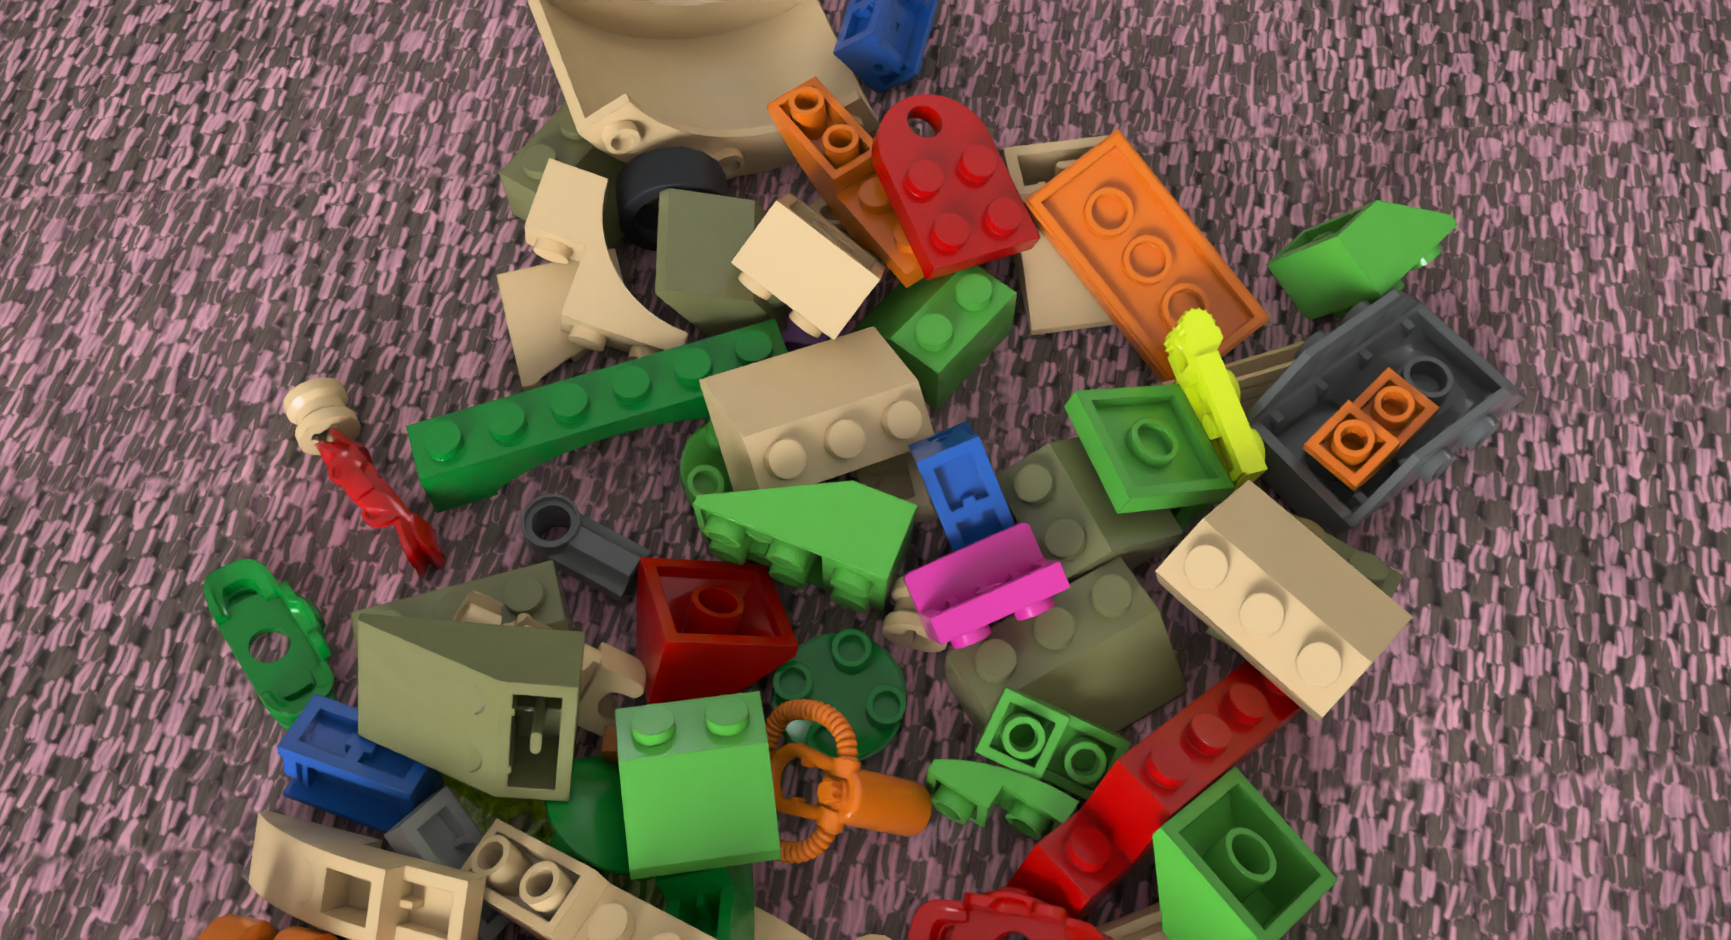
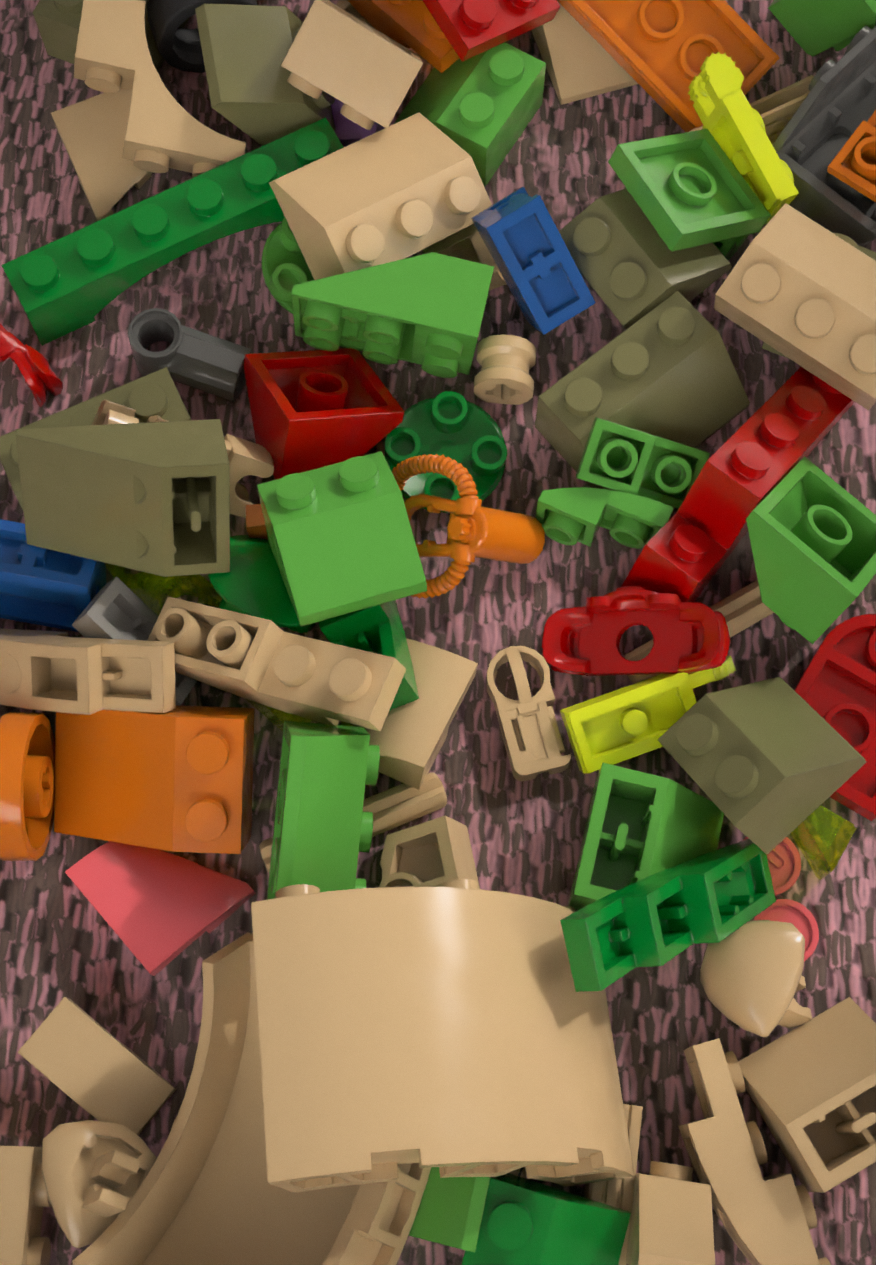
camera: 10 degrees left, 10 degrees up
(983, 584) = (561, 330): dark pink bracket -> none

